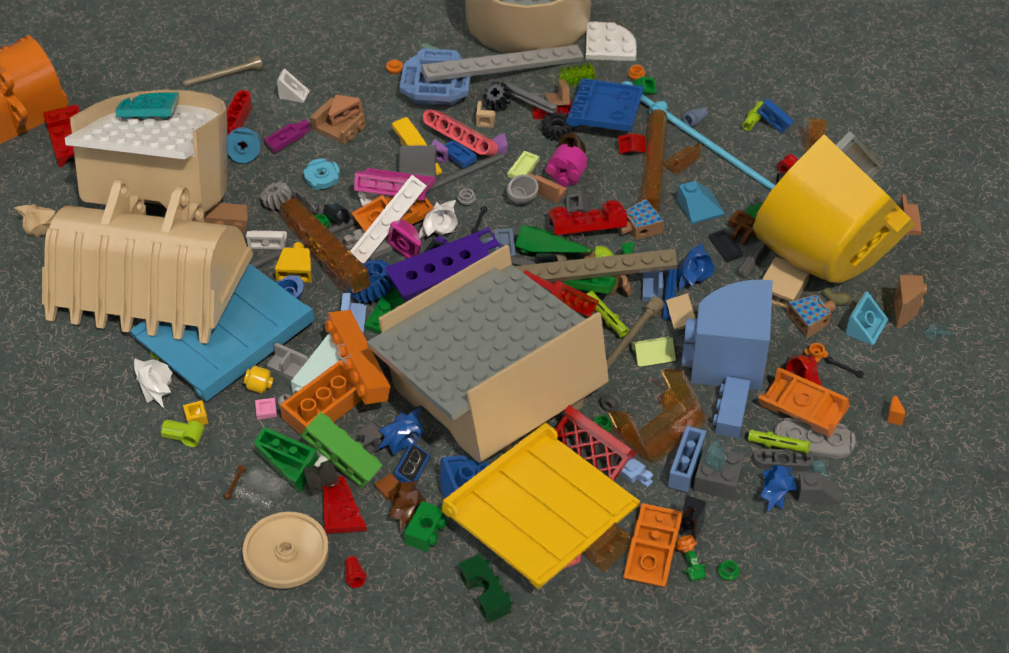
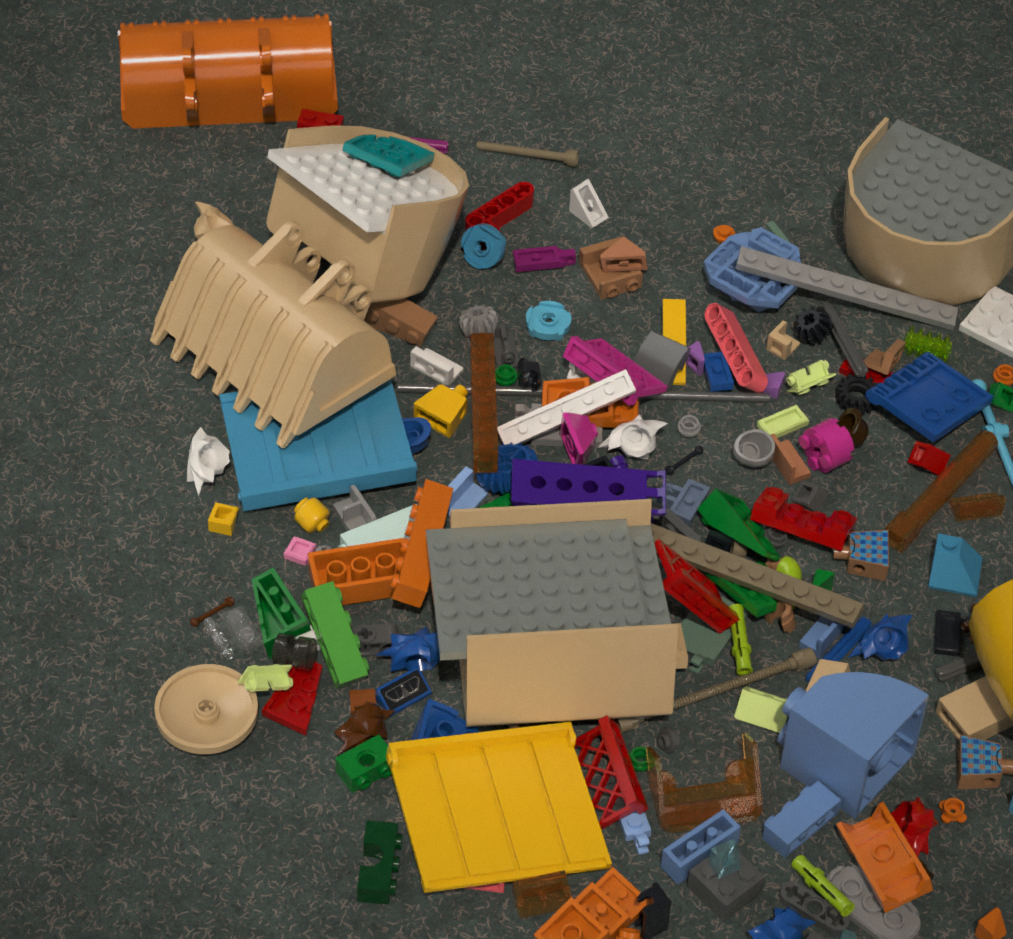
camera: 30 degrees right, 0 degrees up
(187, 433) = (201, 535): lime piece -> none
(316, 504) = (257, 678): none -> yellowish green hinge
(354, 572) = (259, 771): red cone -> none
(516, 134) = (817, 376): none -> yellowish green hinge
(859, 374) = (985, 862): black hinge -> none

